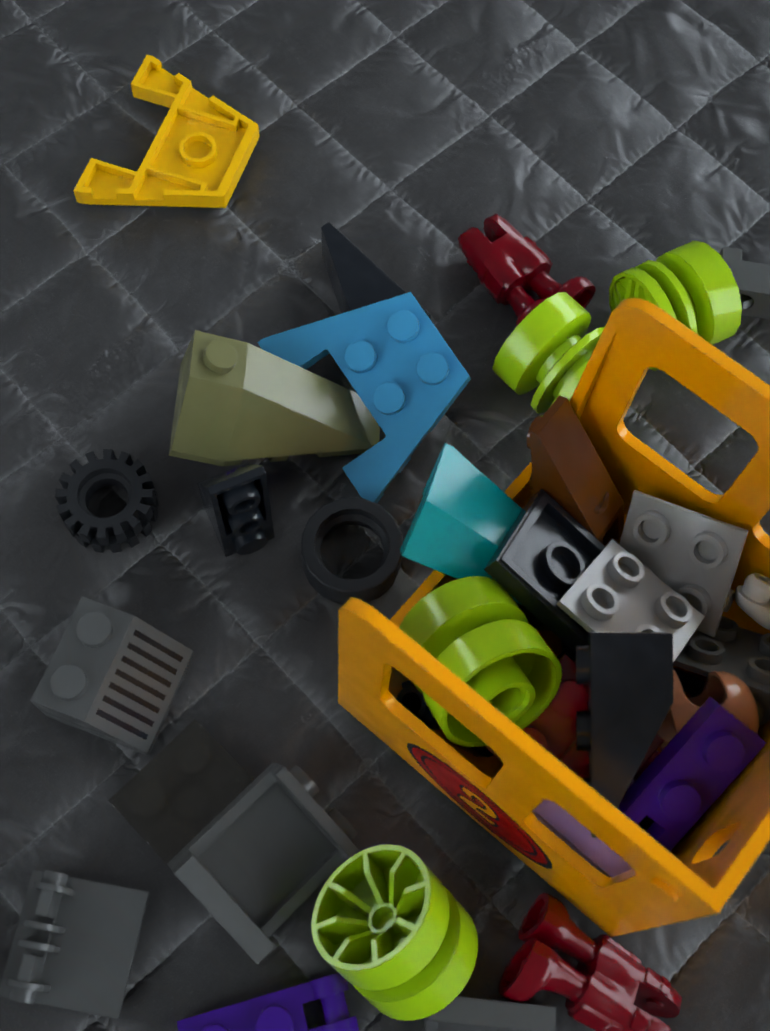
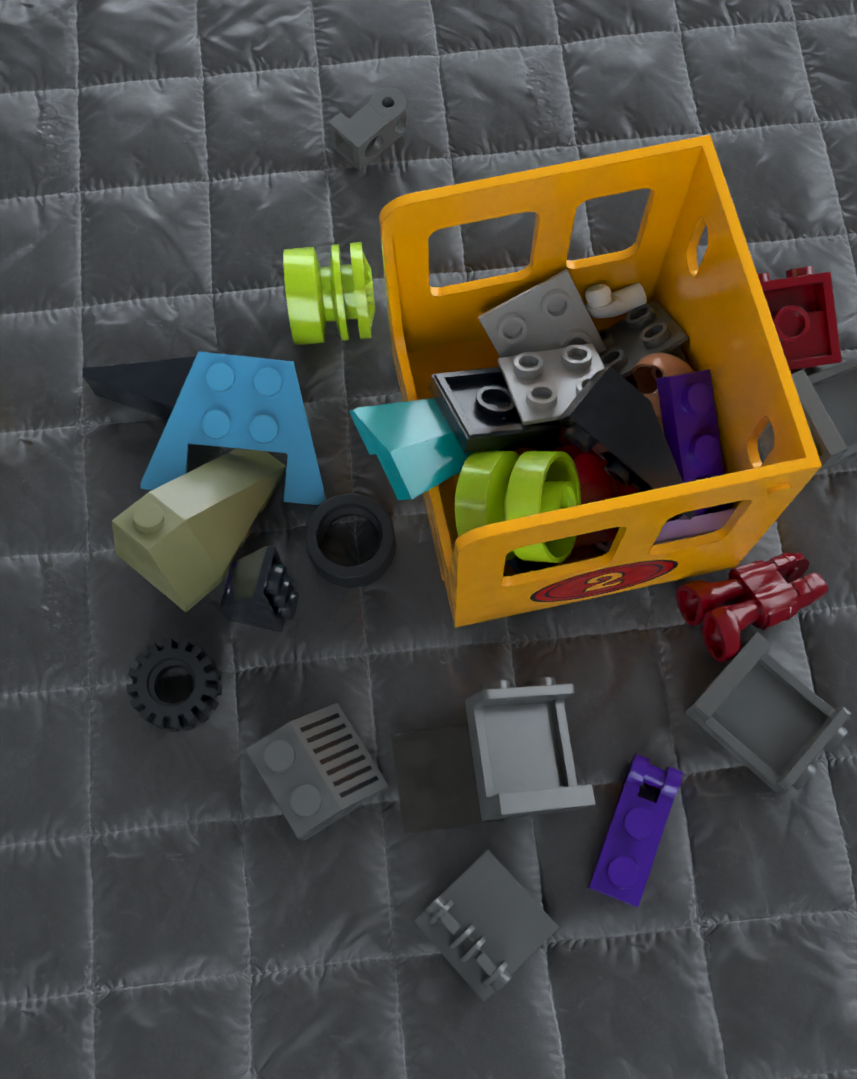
camera: 45 degrees left, 5 degrees up
(395, 932) = (641, 697): lime wheel -> none
(511, 263) = (220, 269): dark red piece -> none
(573, 472) = (434, 345): reddish brown slope -> none
(688, 285) = (346, 187): lime wheel -> none

